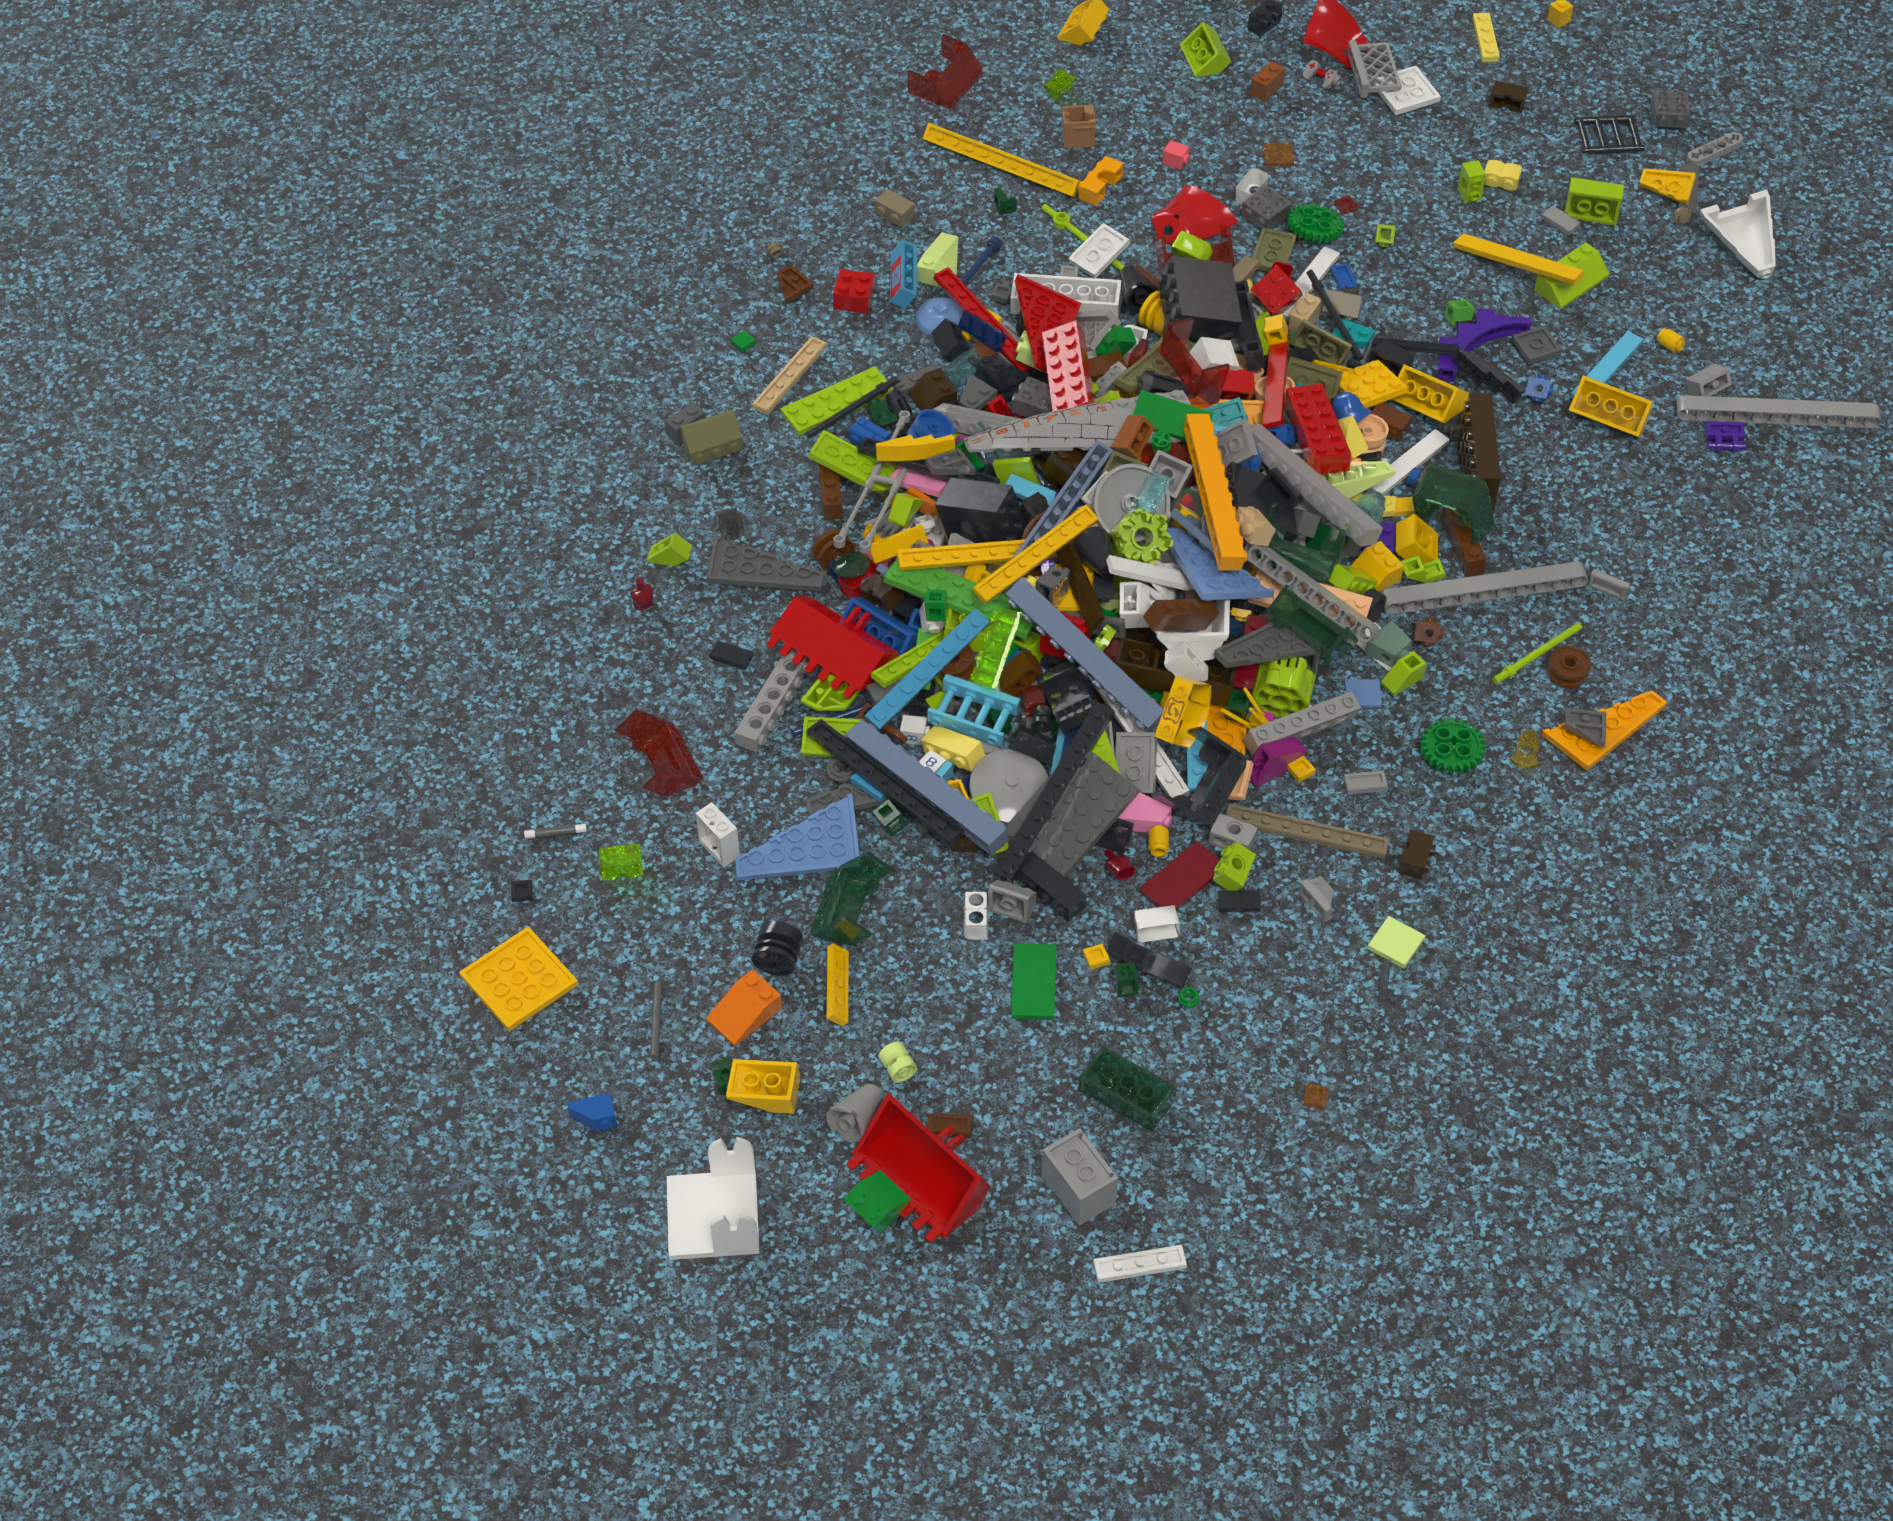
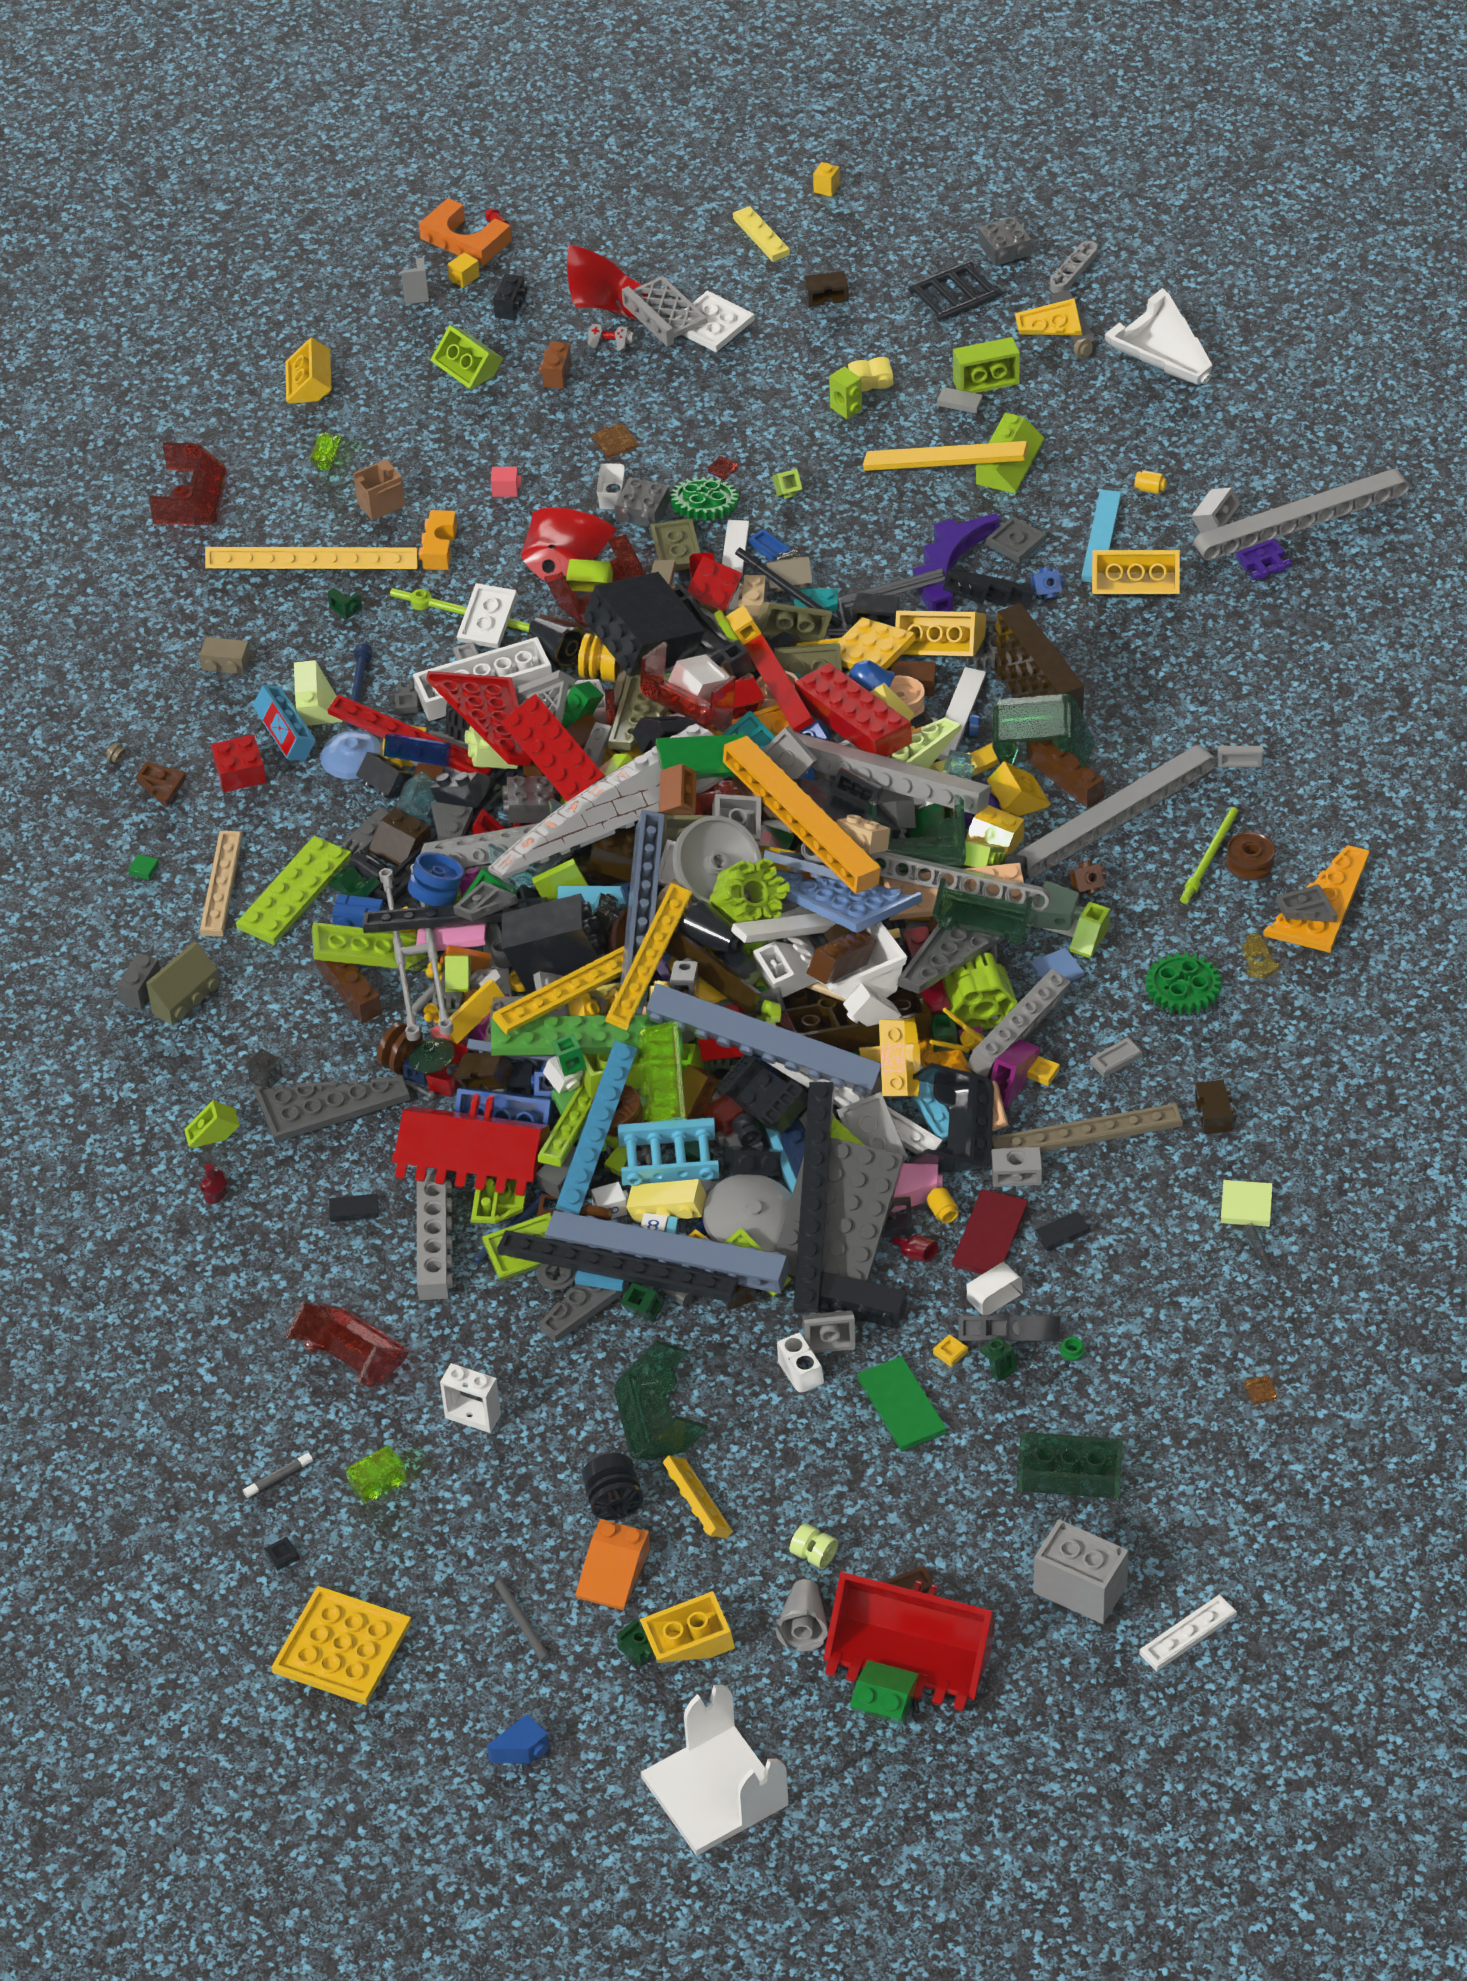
camera: 25 degrees left, 5 degrees down
(810, 847) = (579, 1365): medium blue wing -> none
(880, 389) = (339, 857): black bar -> none
(910, 449) = (430, 903): yellow slope -> none
(1152, 492) = (739, 839): clear light blue brick -> none
(1161, 437) = (712, 780): green wheel -> none
(1233, 866) = (1038, 1197): lime brick -> none
(1318, 896) = (1142, 1190): light grey slope -> none
(1424, 572) = (1045, 818): lime slope -> none
(1459, 311) = (914, 535): bright green brick -> none

